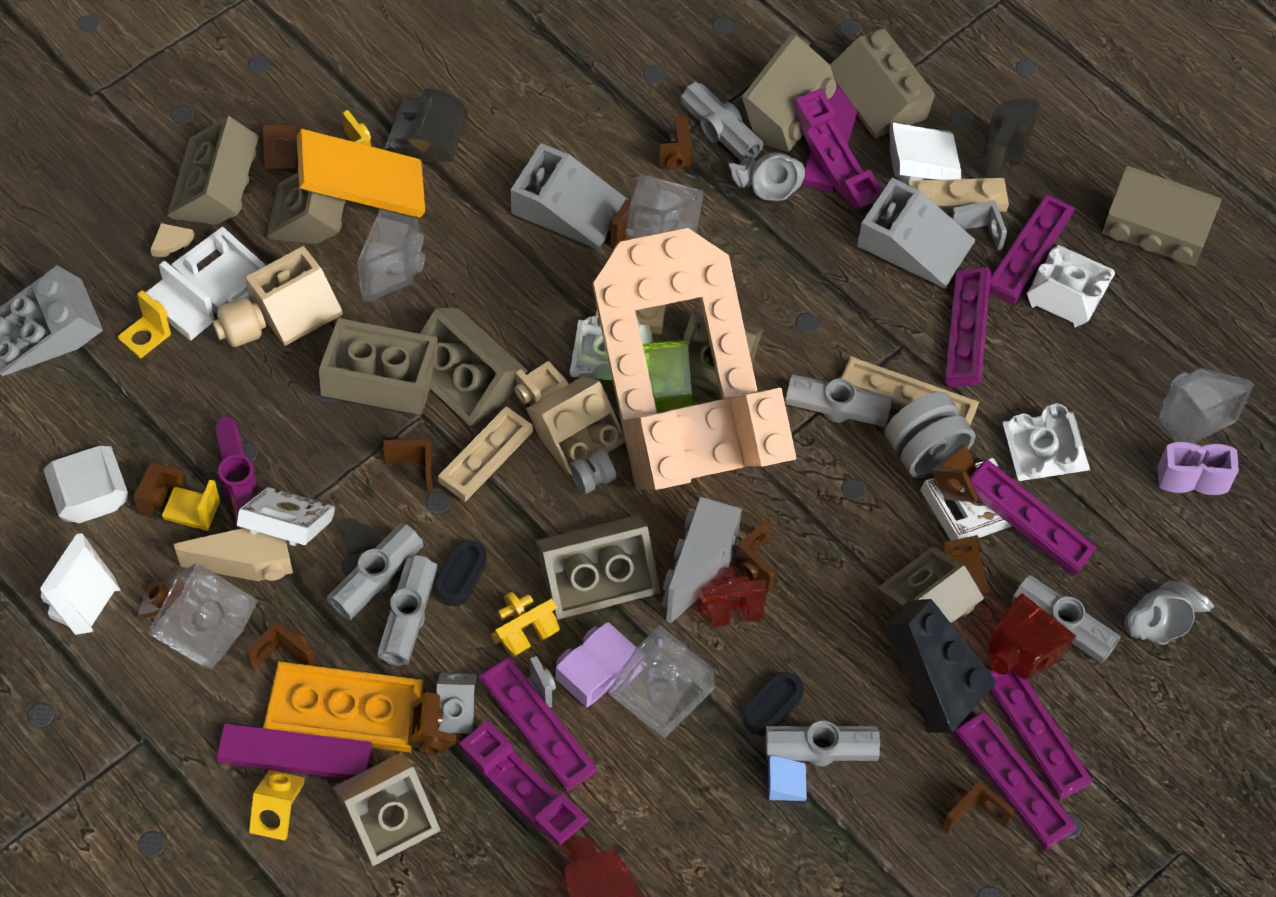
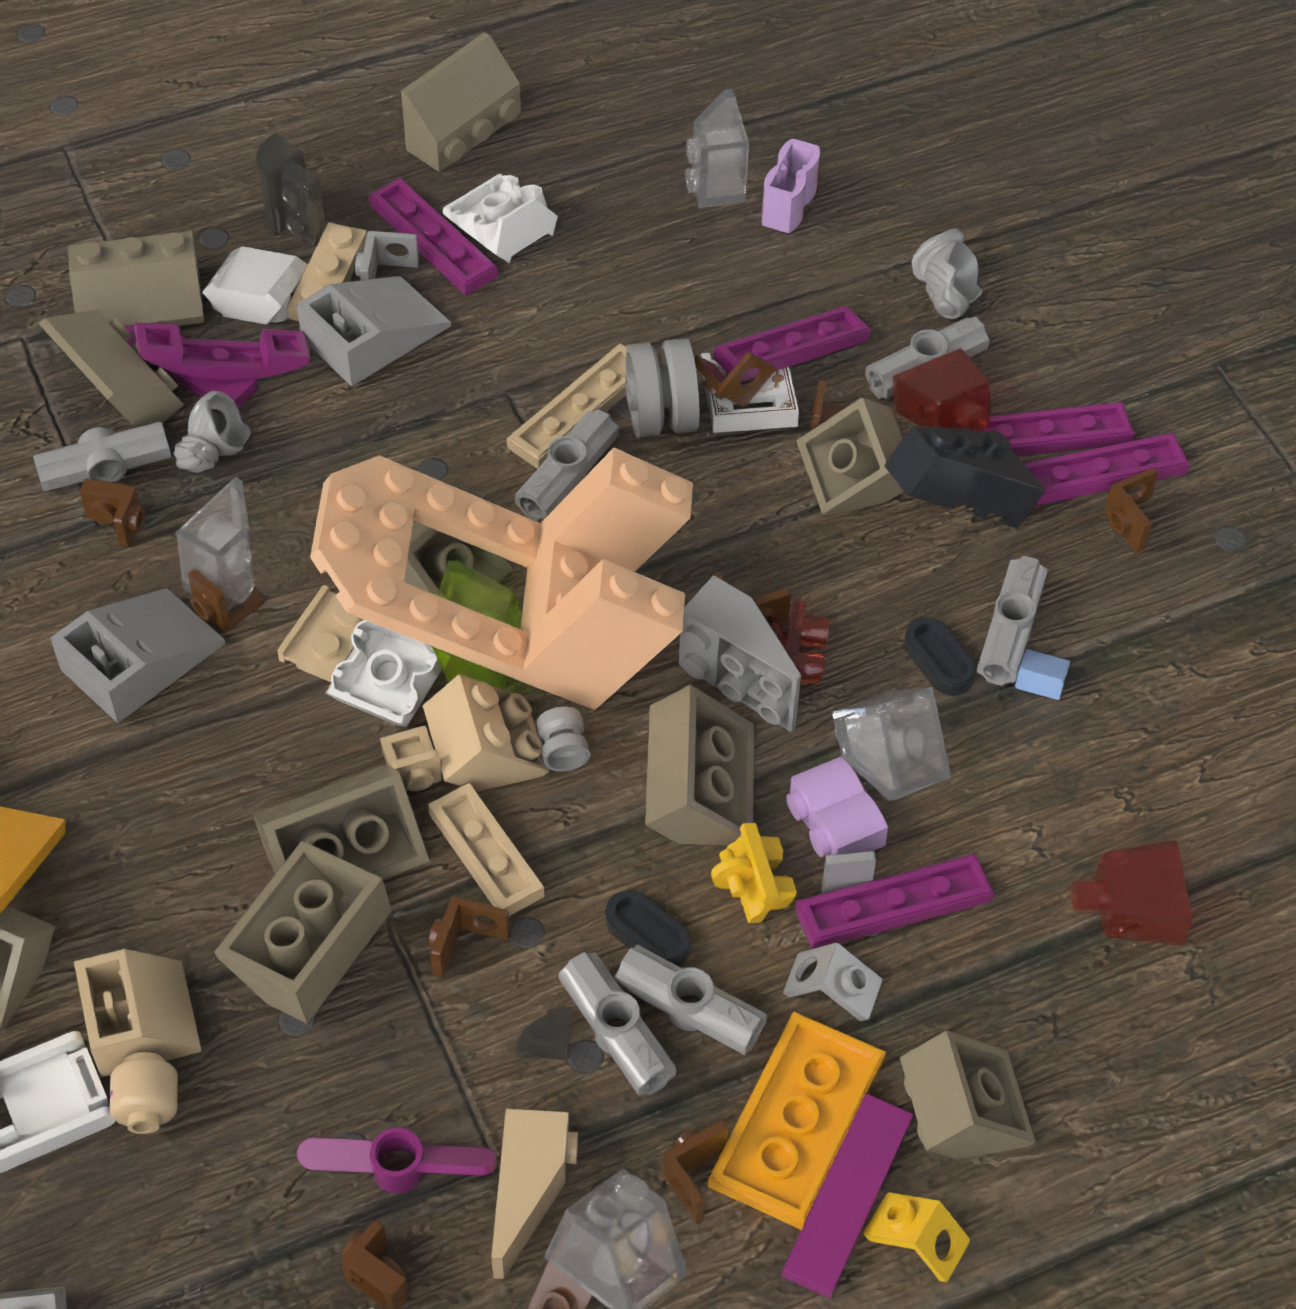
camera: 70 degrees left, 5 degrees down
(153, 321) = (78, 1210): yellow bracket -> none
(186, 304) = (63, 1167): white panel -> none
(192, 507) = (425, 1228): yellow bracket -> none
(285, 516) = (478, 1109): white container -> none
(390, 255) = (129, 864): clear slope -> none
(424, 726) = (868, 1016): reddish brown bracket -> none
(520, 785) = (983, 939): magenta slope -> none
(968, 327) = (516, 319): magenta tile -> none
(1046, 444) = (701, 302): white slope -> none

